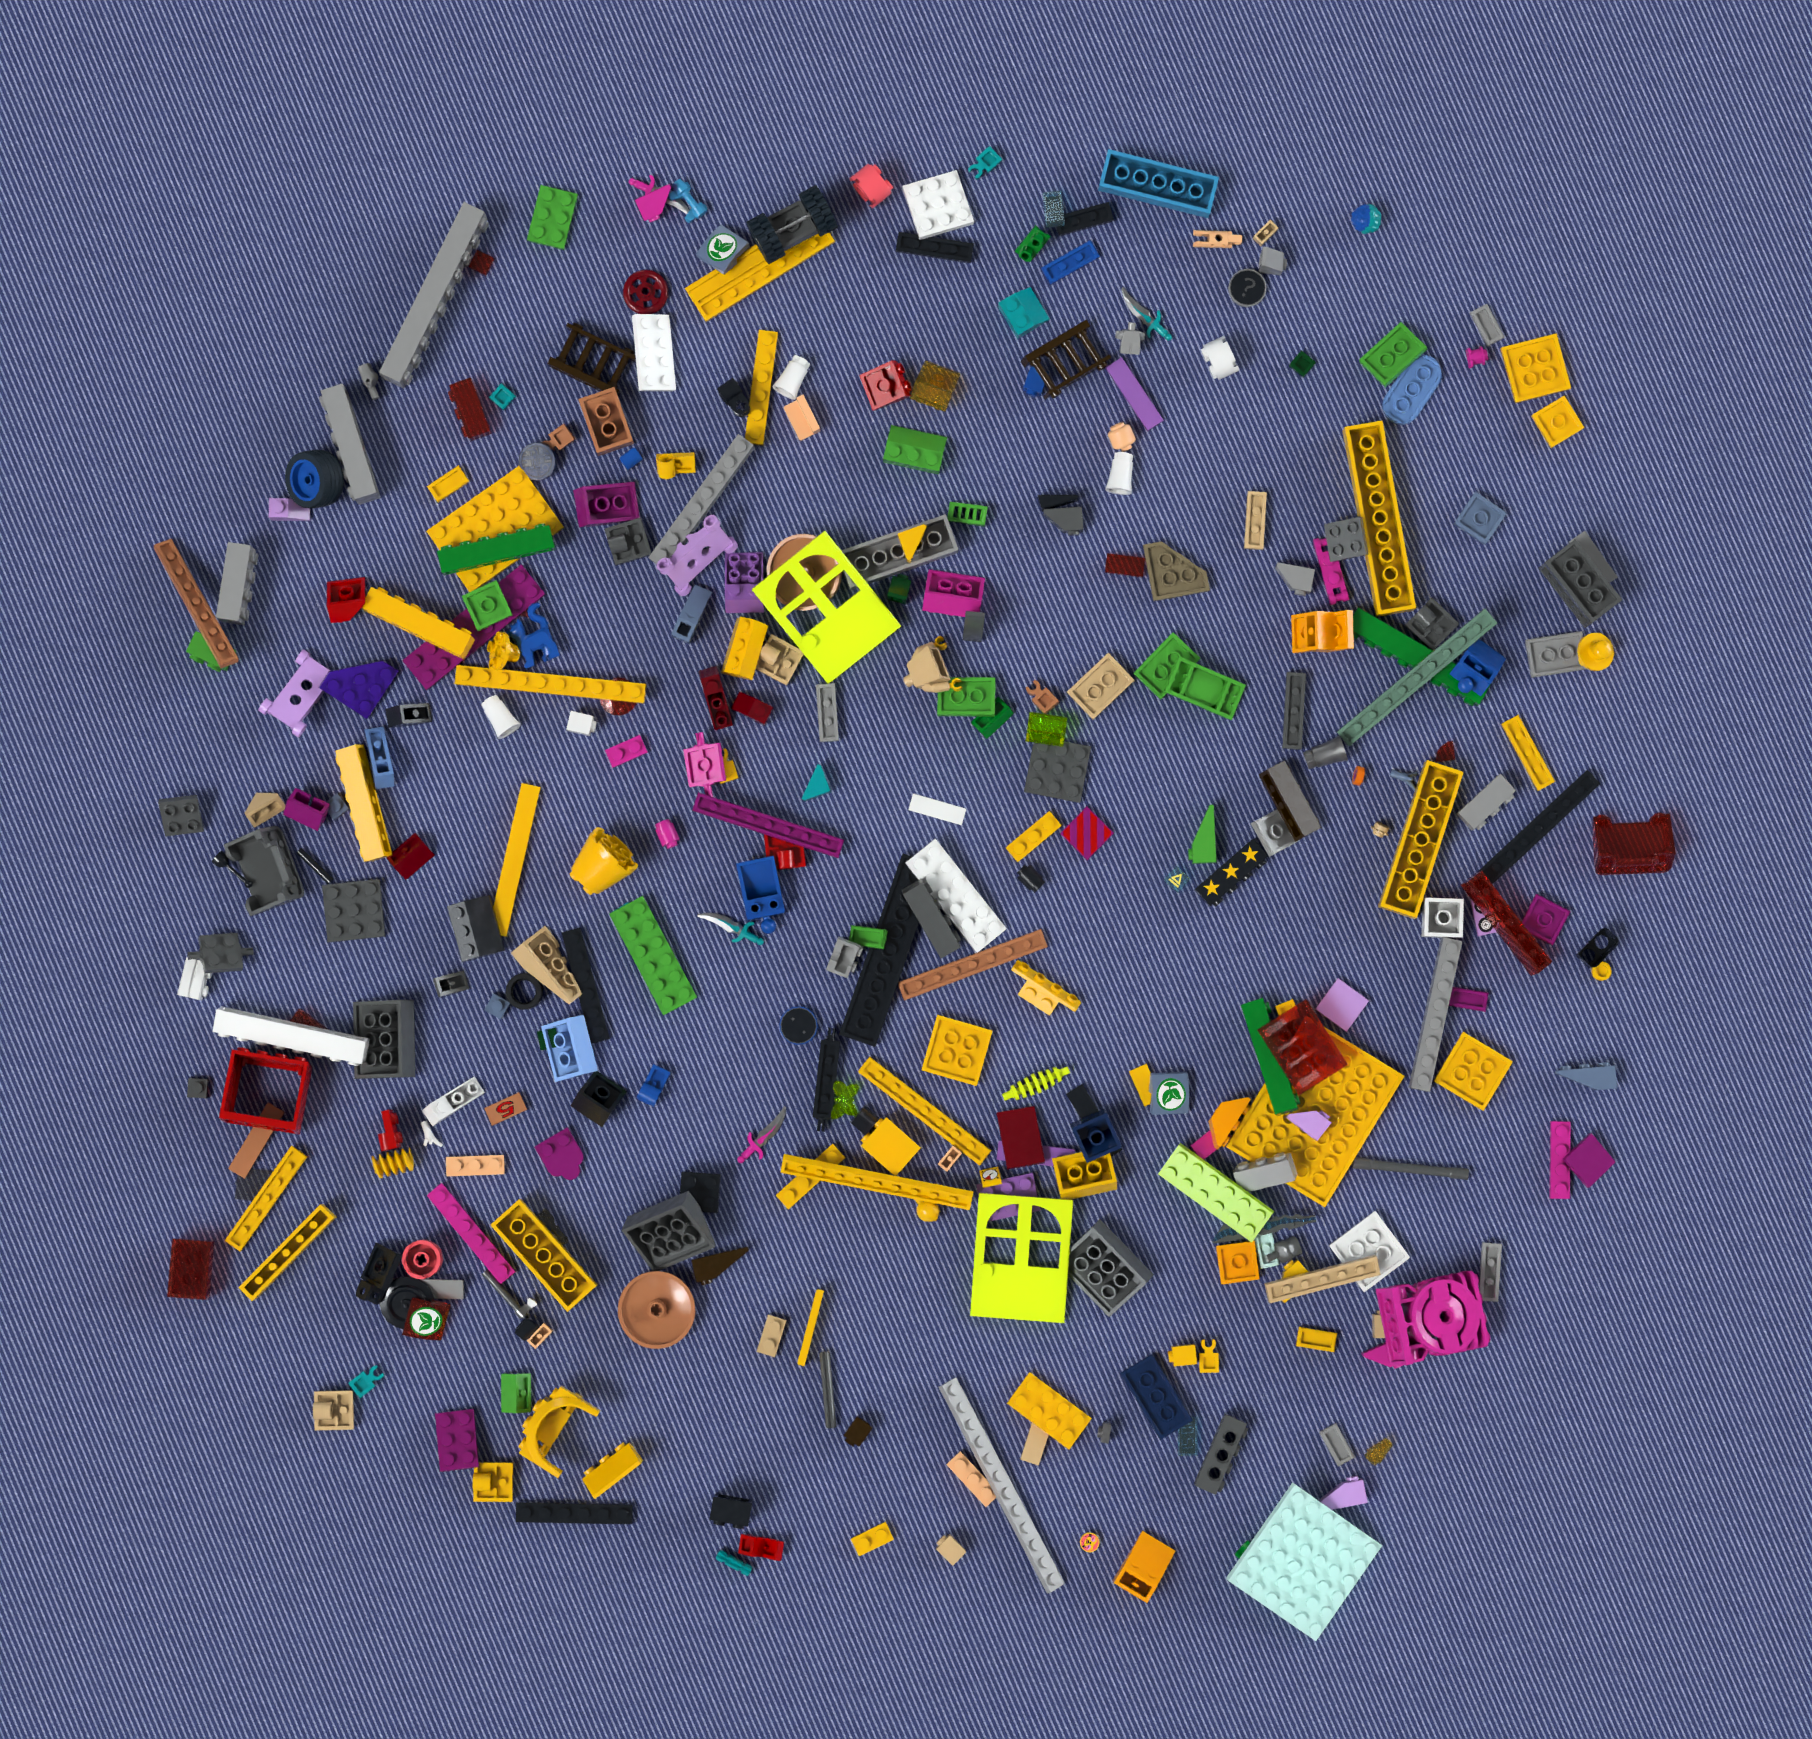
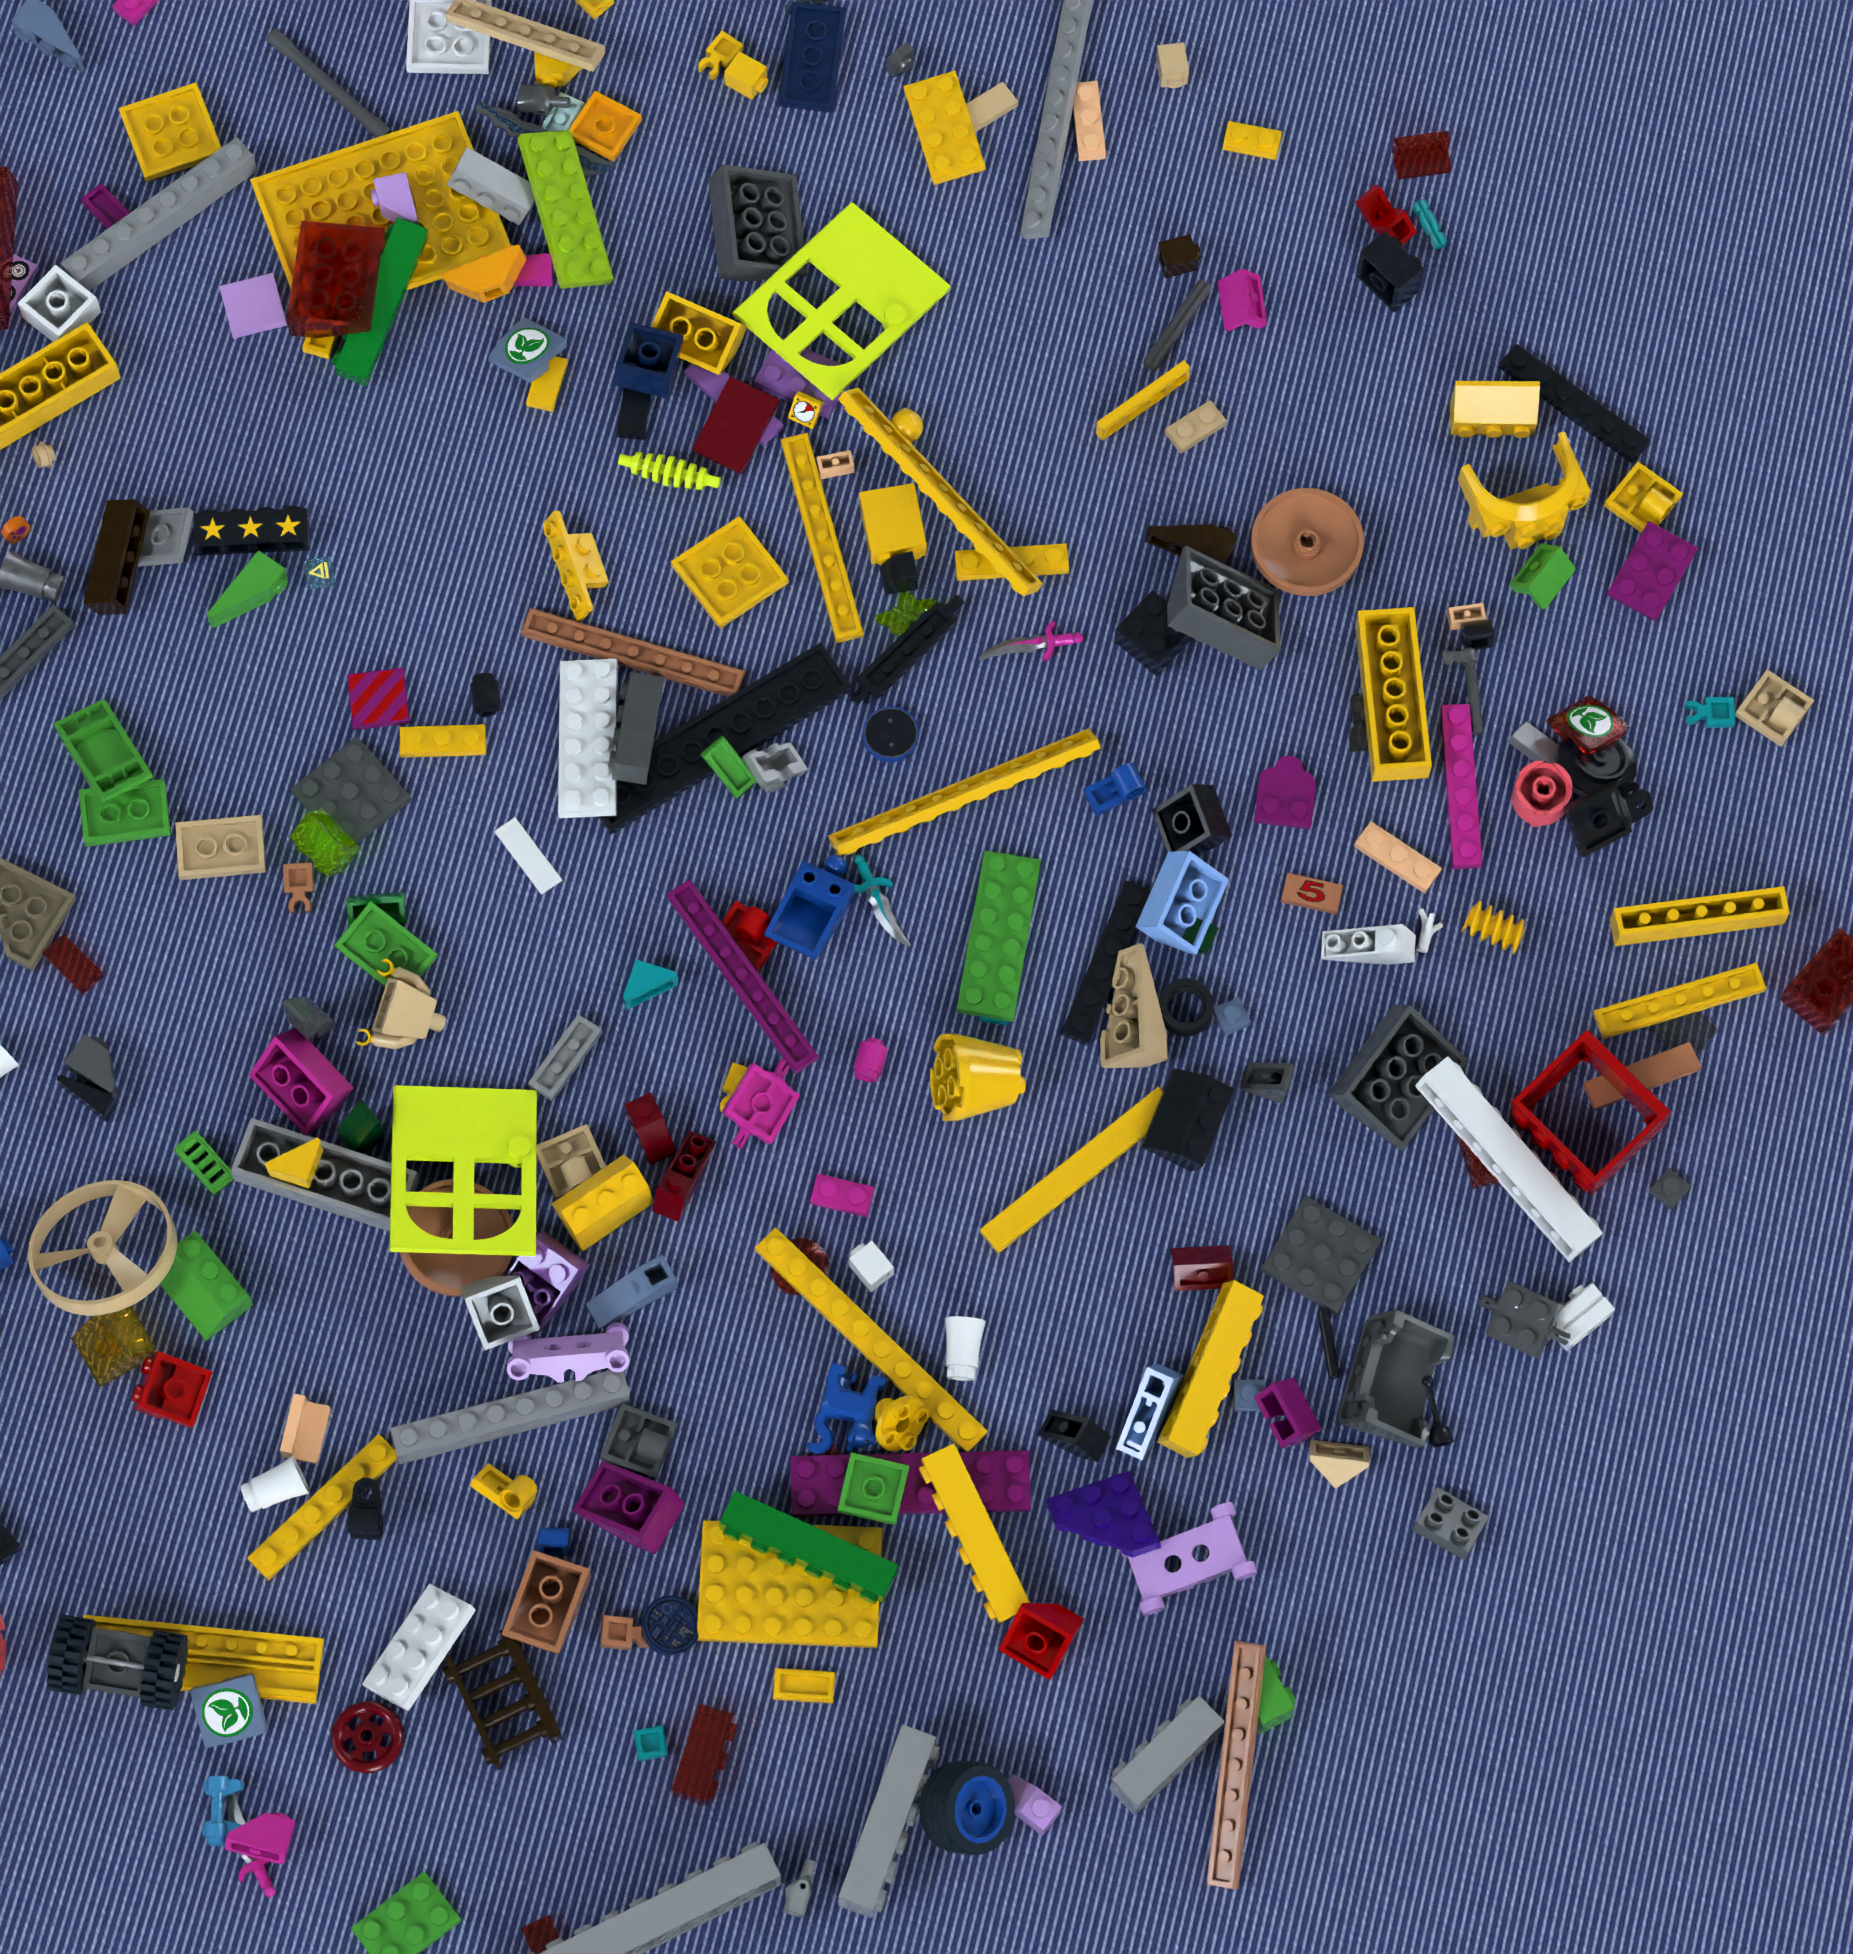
camera: 140 degrees left, 15 degrees down
(391, 1138) = (1476, 951): red plate -> none
(732, 1022) = (965, 791): none -> yellow plate
(750, 548) = (499, 1309): none -> light grey slope
(769, 1602) = (1421, 155): none -> clear red panel
(802, 1432) = (1242, 300): none -> dark pink panel
(986, 455) = (125, 1205): none -> tan piece

